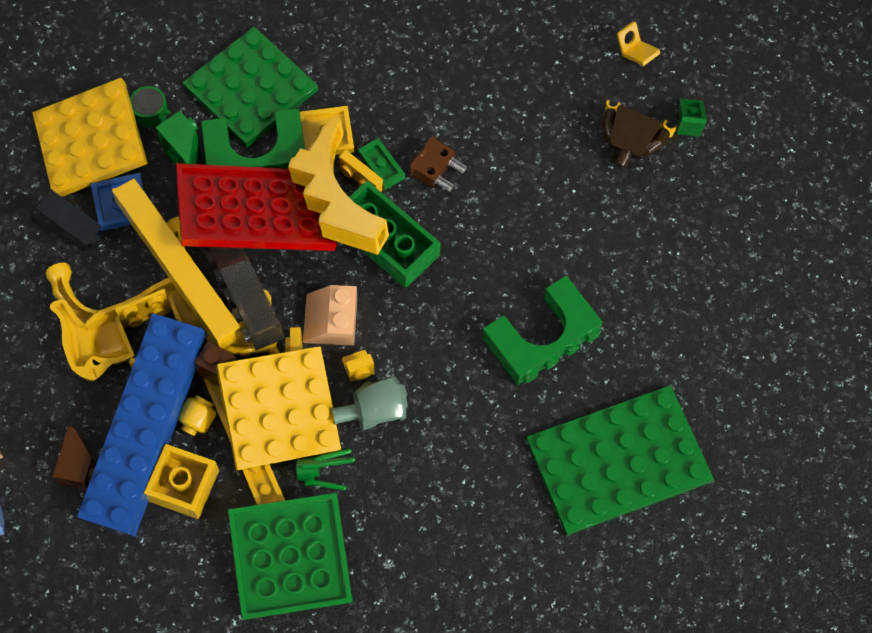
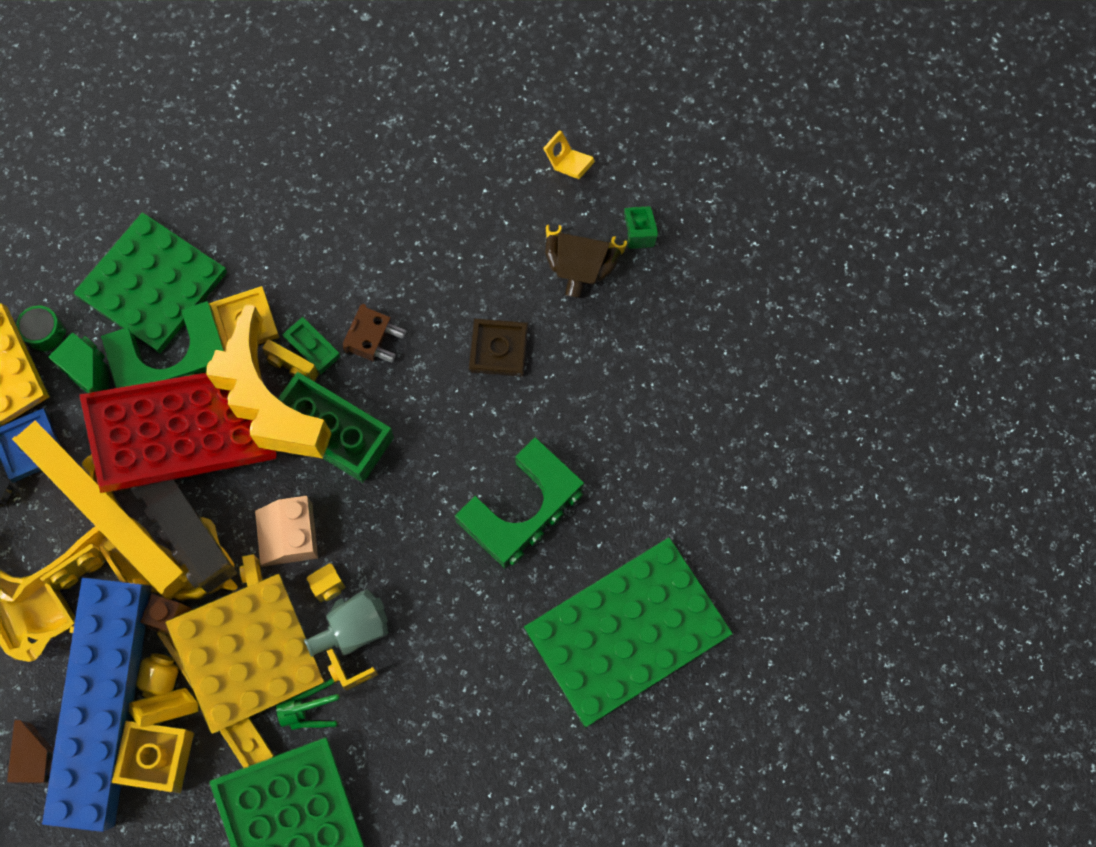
camera: 10 degrees left, 5 degrees up
(198, 441) = (163, 707): none -> yellow tile
(365, 454) = (338, 673): none -> yellow bracket
(545, 196) = (498, 347): none -> dark brown tile

